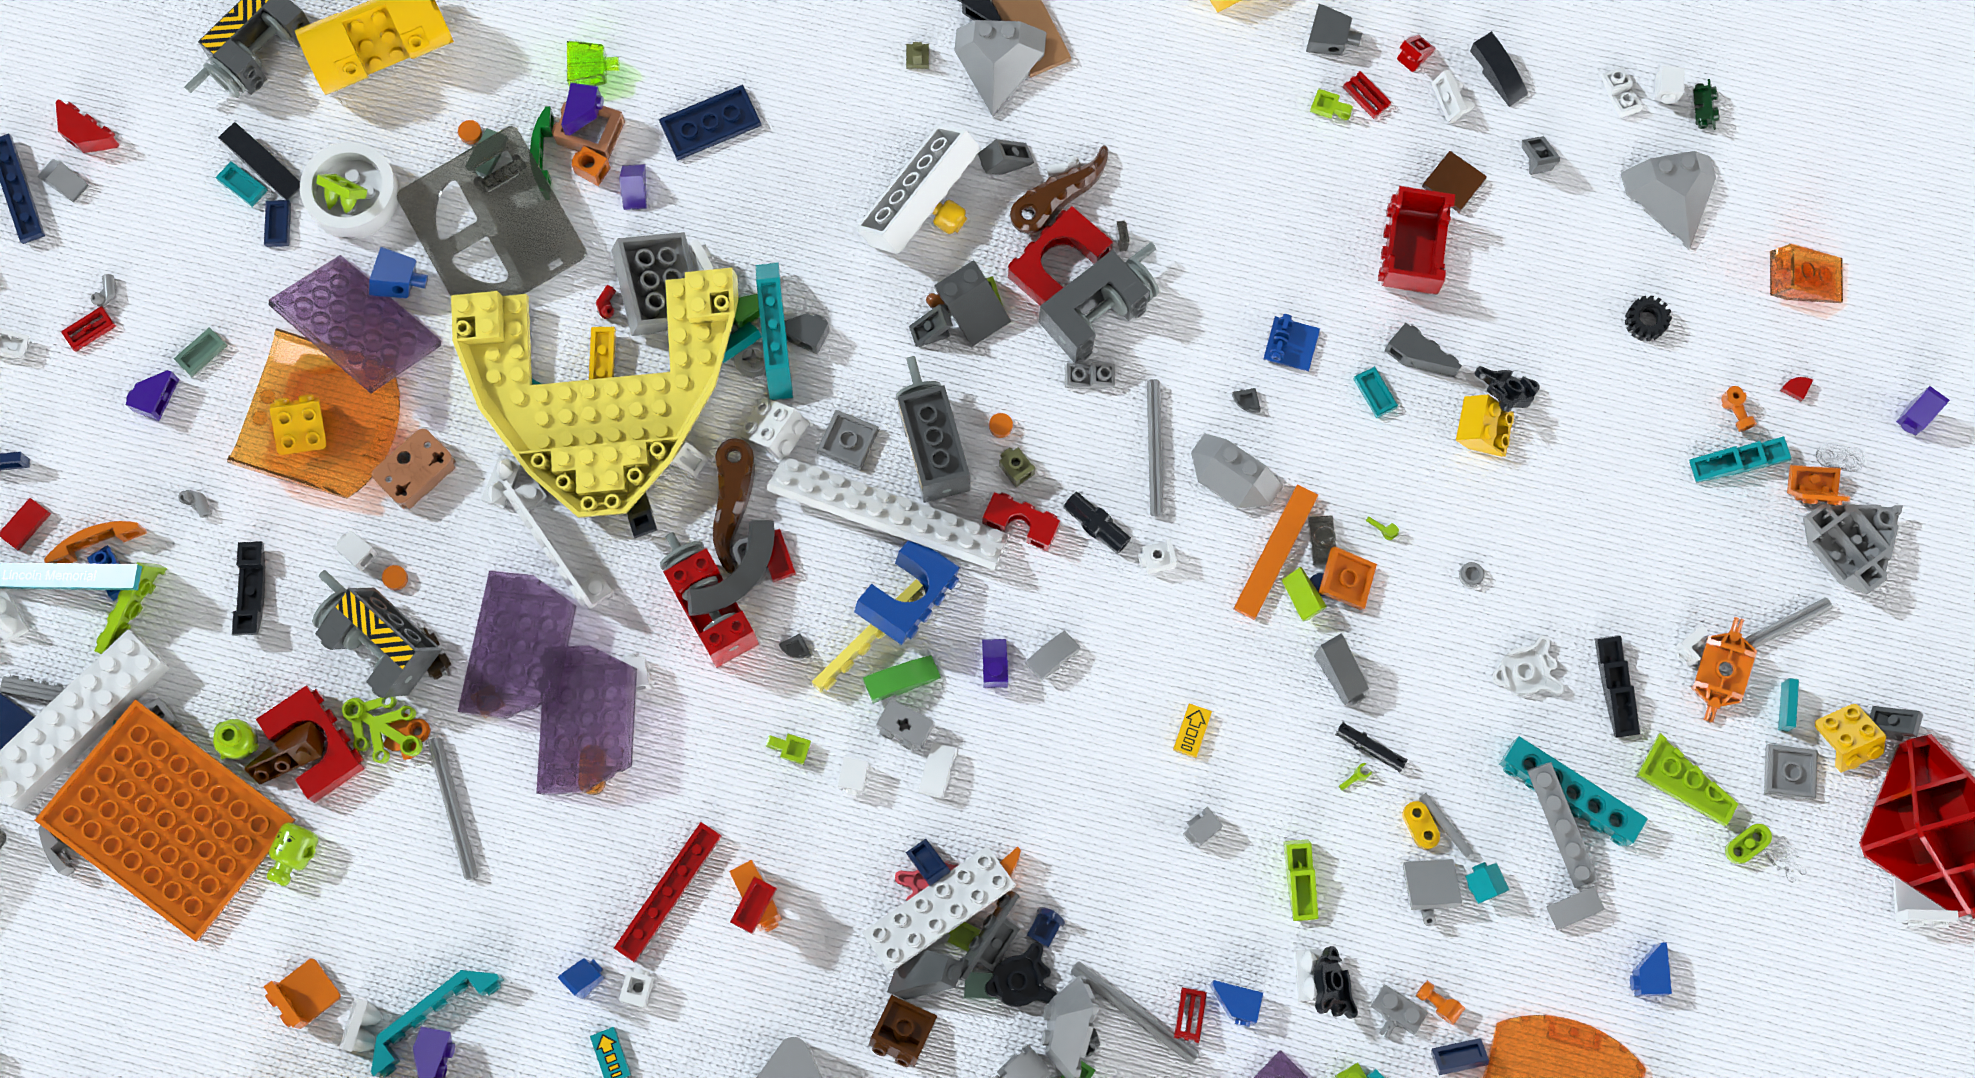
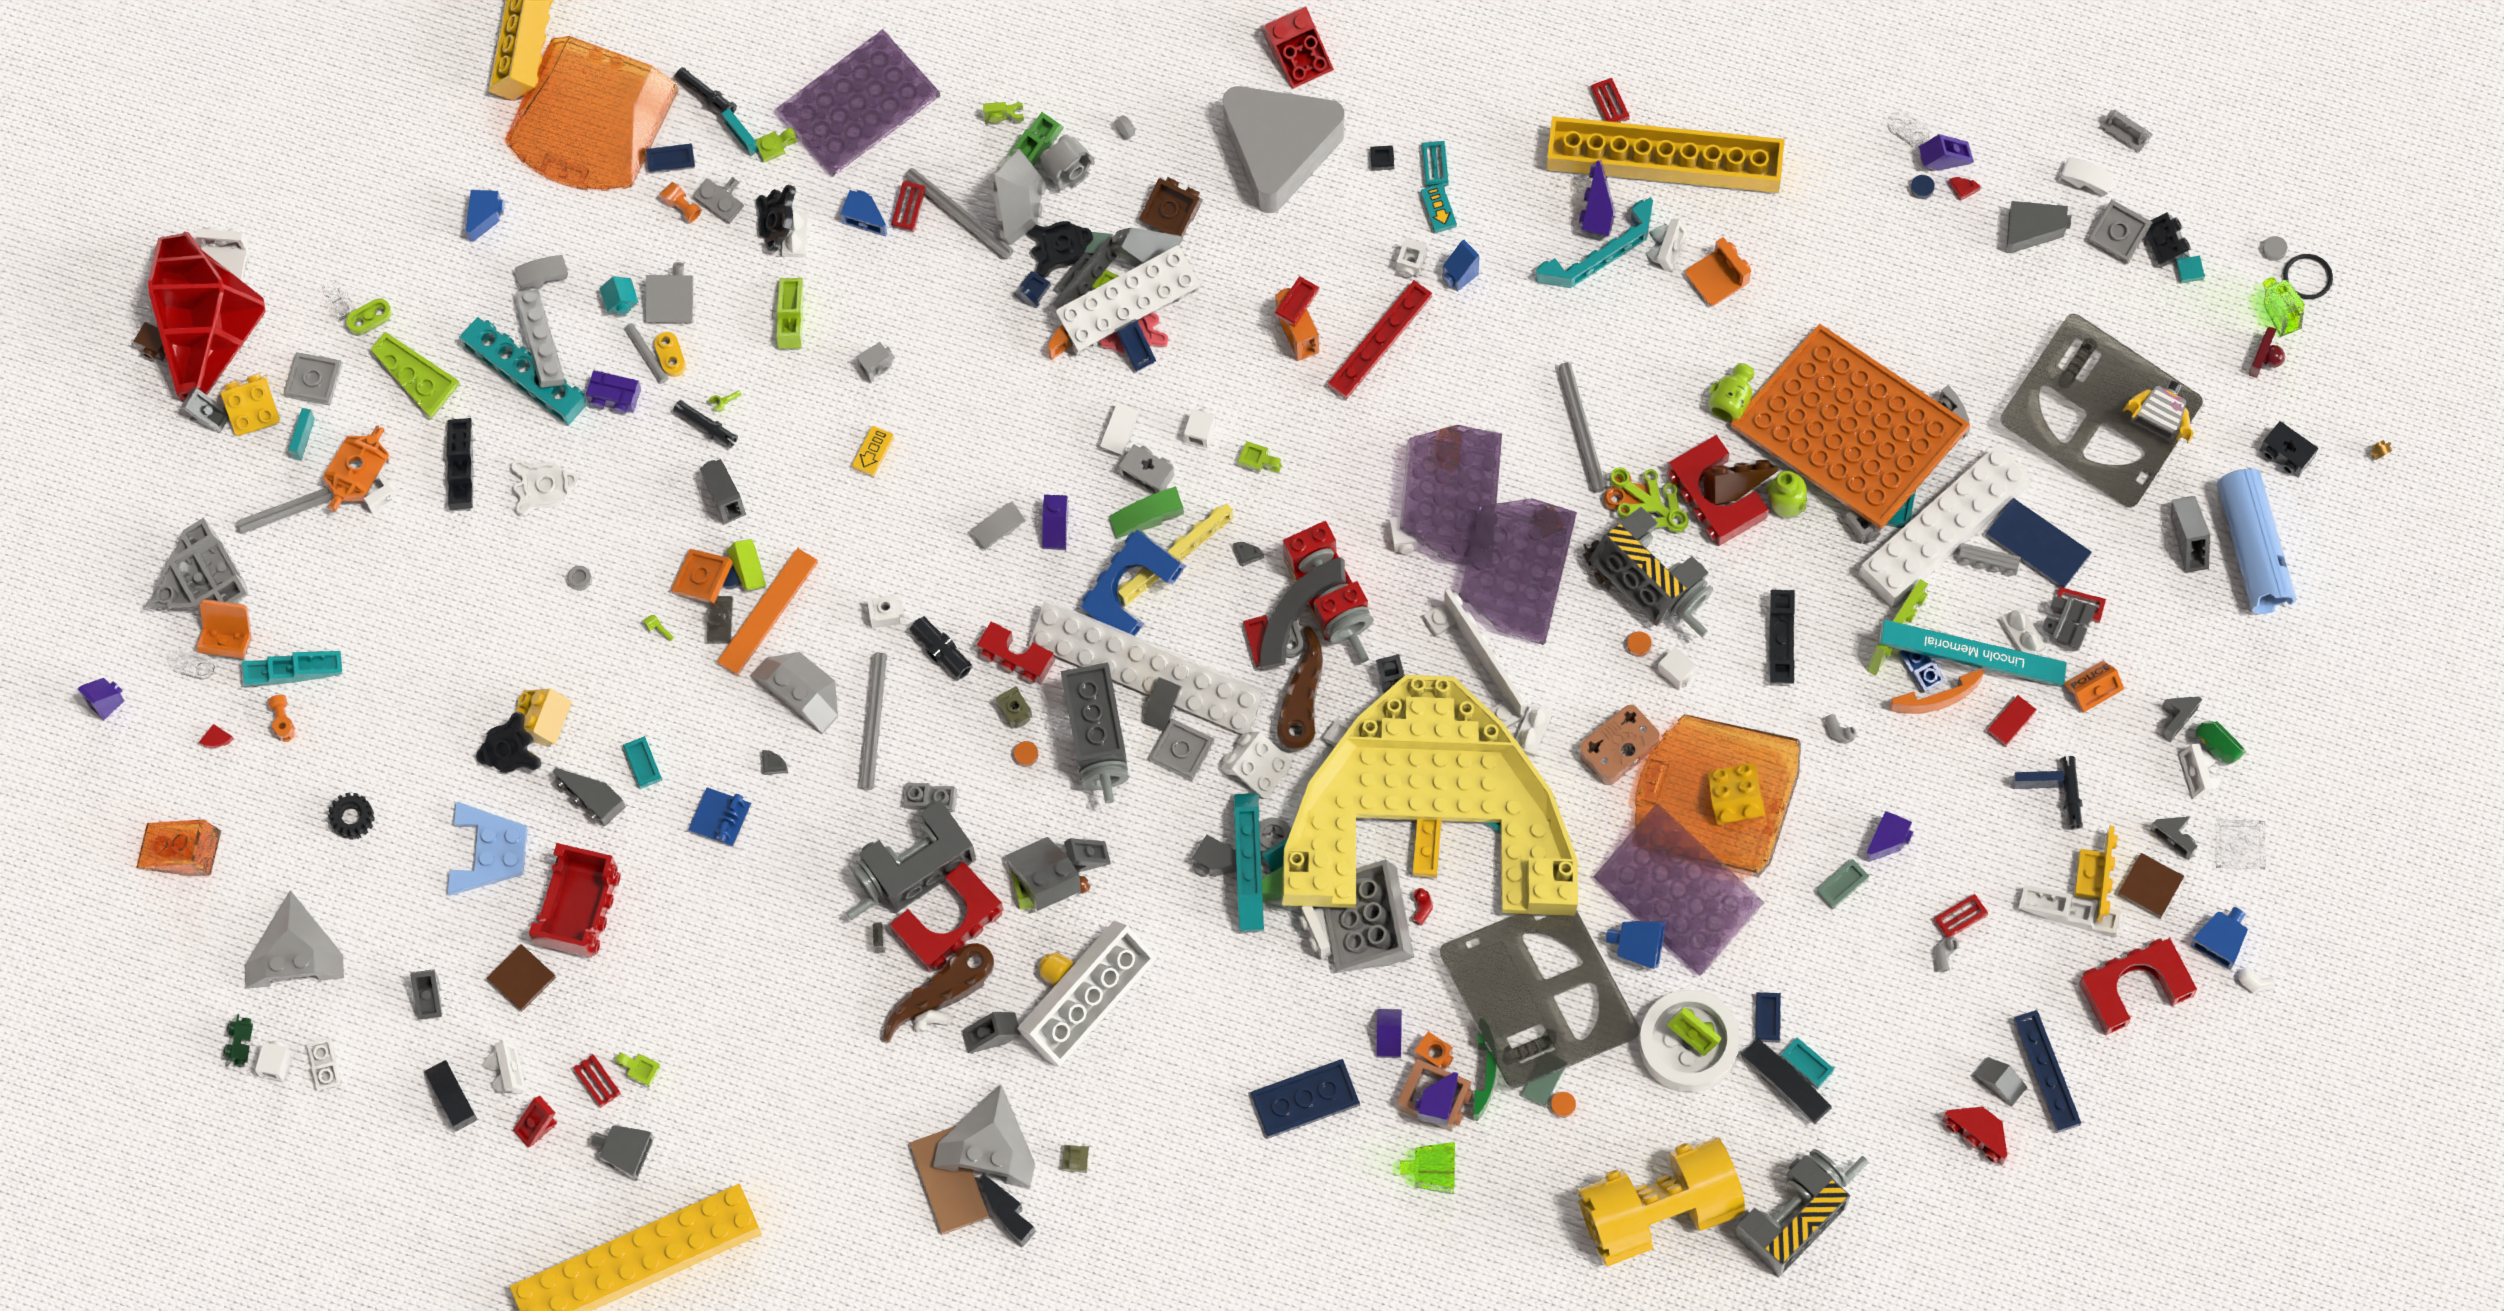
camera: 170 degrees left, 5 degrees down
(869, 477) = (1162, 703): none -> dark grey slope
(1473, 774) = (613, 392): none -> dark purple brick
(1499, 299) = (498, 849): none -> light blue wing

